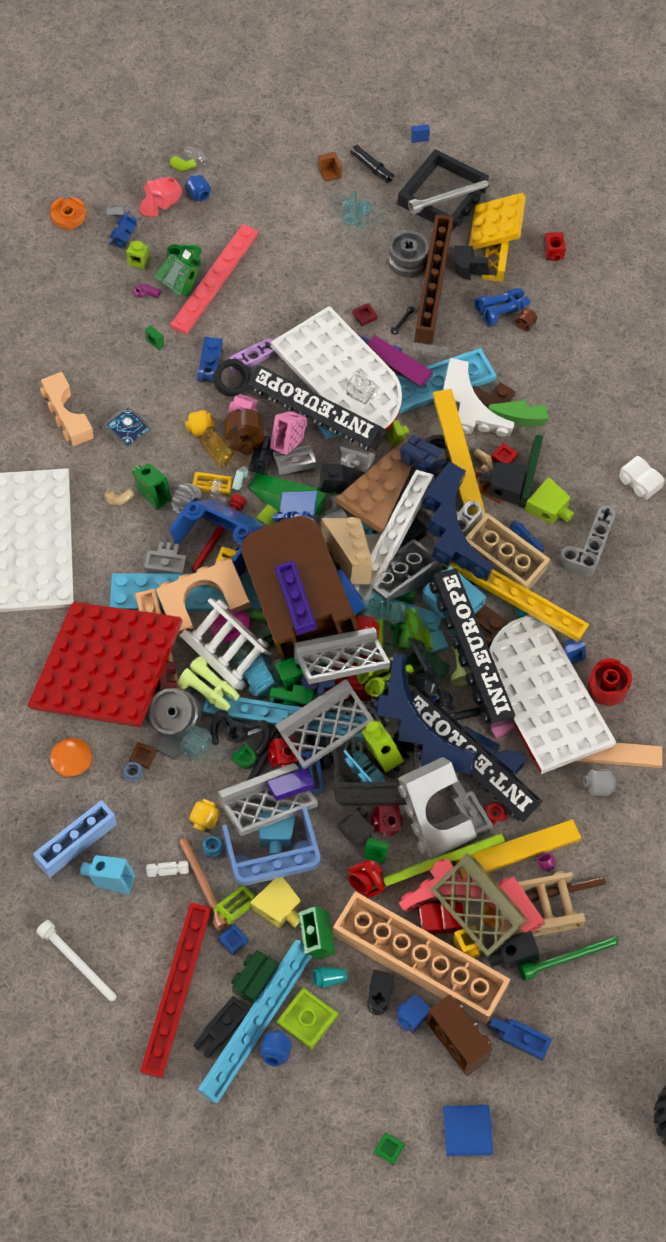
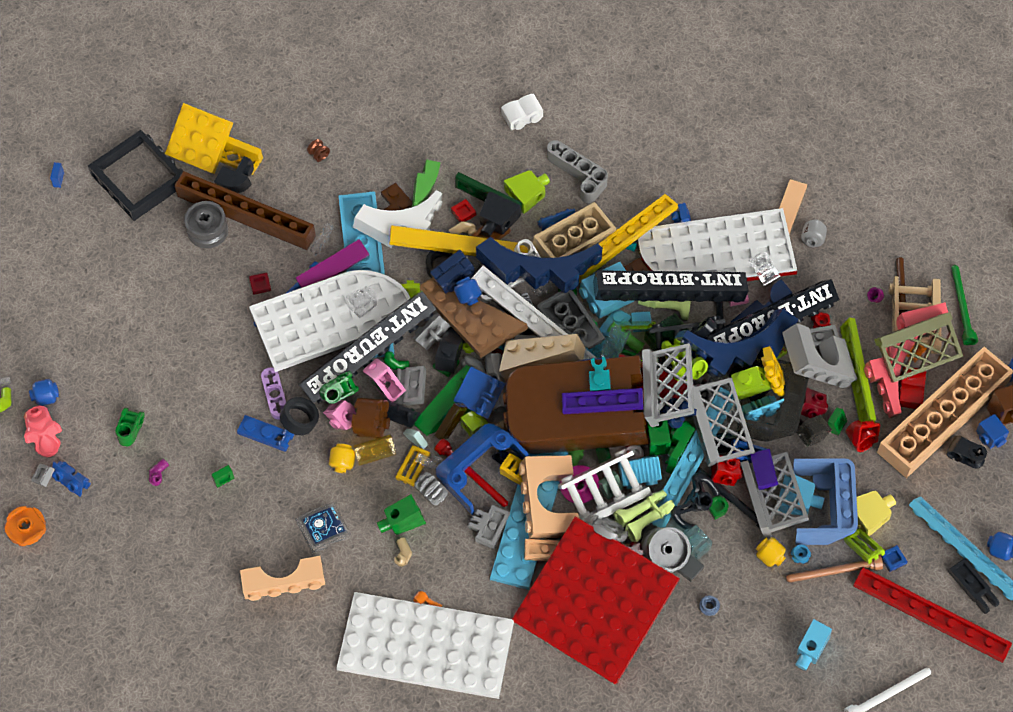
camera: 70 degrees left, 0 degrees up
(71, 757) = (680, 656): orange dish -> none
(75, 839) = (771, 666): light blue brick -> none
(77, 523) = (422, 597): none -> orange hand
(138, 249) = (108, 467): lime brick -> none
(143, 755) = (693, 593): reddish brown tile -> none
(167, 868) = (813, 597): white axle -> none
(178, 273) = (153, 433): green torso -> none
(179, 653) = (608, 528): none -> light grey tile
(214, 279) = (166, 406): coral plate -> none
(254, 976) = (934, 547): dark green brick -> none
(261, 497) = (451, 421): none -> dark brown tile
(266, 396) = (342, 386): none -> green piece
(307, 1018) = (977, 517): lime tile -> none
(314, 442) = (394, 364): none -> green arm
(317, 932) = (907, 485): green brick -> none
(318, 587) = (599, 378): none -> teal plate
(328, 976) = (945, 489): teal cone -> none
(330, 166) = (66, 265): dark orange panel -> none
(358, 207) = (138, 260): clear light blue hips -> none
(376, 167) = (77, 227): black pin -> none
(394, 330) = (287, 264): black hinge -> none
(402, 471) = (467, 291): none -> blue head
(404, 761) = (773, 371): none -> yellow plate
(416, 206) = (155, 199): light grey piece -> none
(465, 943) = (940, 374): yellow brick -> none
(514, 302) = (288, 180): blue piece -> none
(524, 948) = (961, 326): black torso -> none
(526, 847) = (858, 307): yellow tile -> none
(527, 733) = (764, 268): none -> clear brick
(554, 246) = (242, 102): red brick -> none
(609, 682) = (722, 196): red brick -> none

